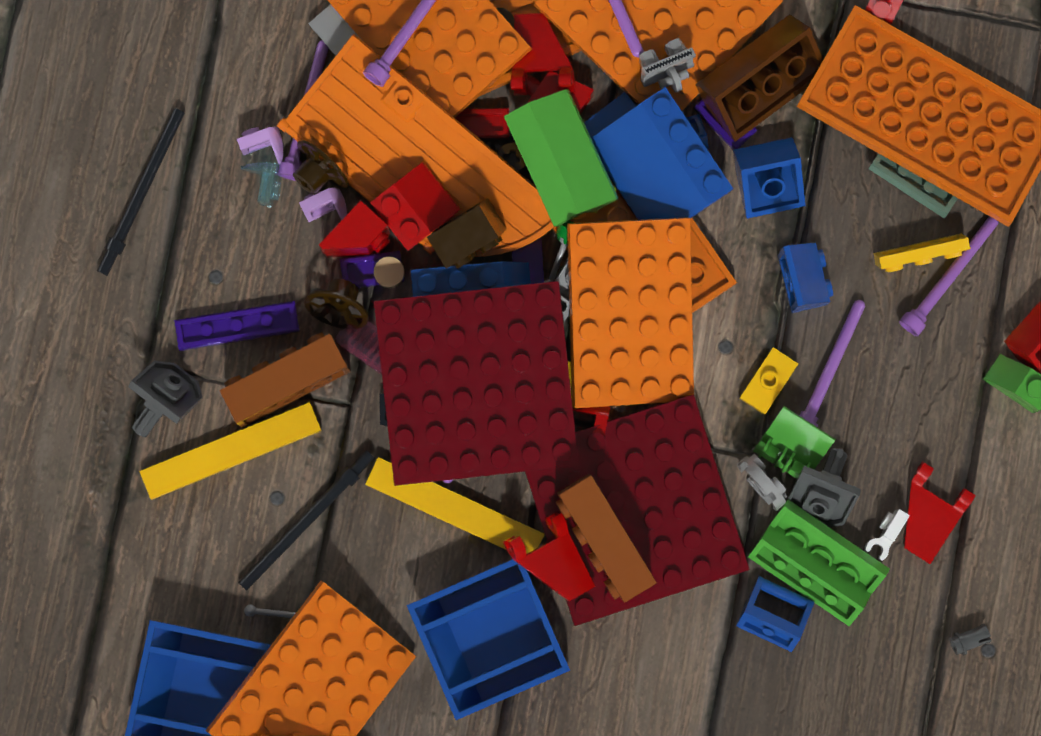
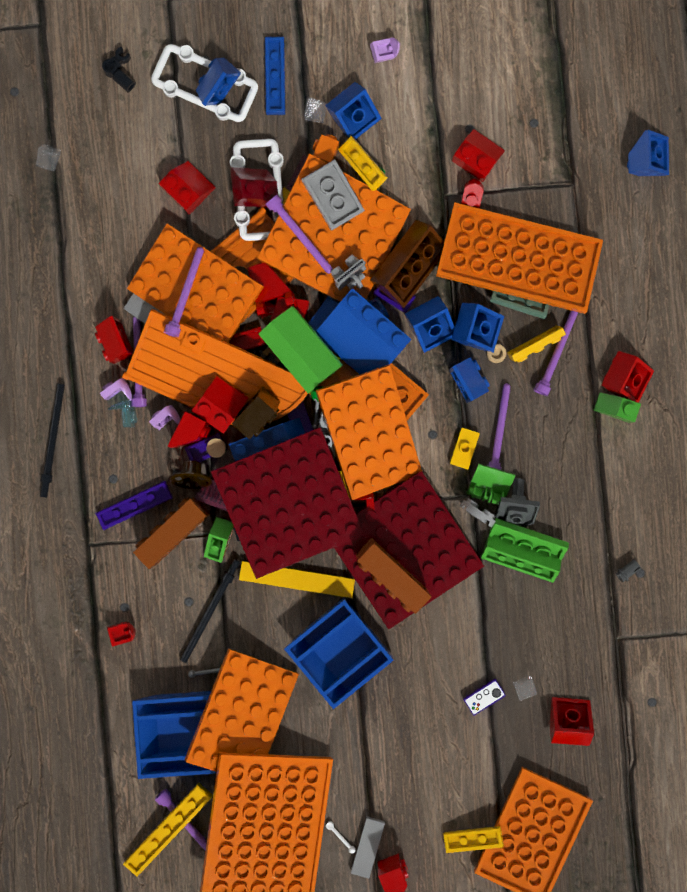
camera: 15 degrees left, 5 degrees up
(160, 515) = (121, 633): none -> red plate
(167, 393) = (103, 559): dark grey piece -> none
(230, 451) = (152, 582): yellow tile -> none
(280, 66) = (114, 340): none -> red slope
(314, 172) = (154, 401): dark brown wheel -> none
(352, 414) = (218, 539): none -> bright green slope
(555, 562) = (366, 597): red flag -> none
(769, 625) = (507, 597): blue tile -> none
(839, 201) = (477, 327): none -> blue slope
(857, 250) = (498, 355): none -> tan tile
(891, 528) = (563, 516): white plate -> none
(930, 516) = (584, 503): red flag -> none

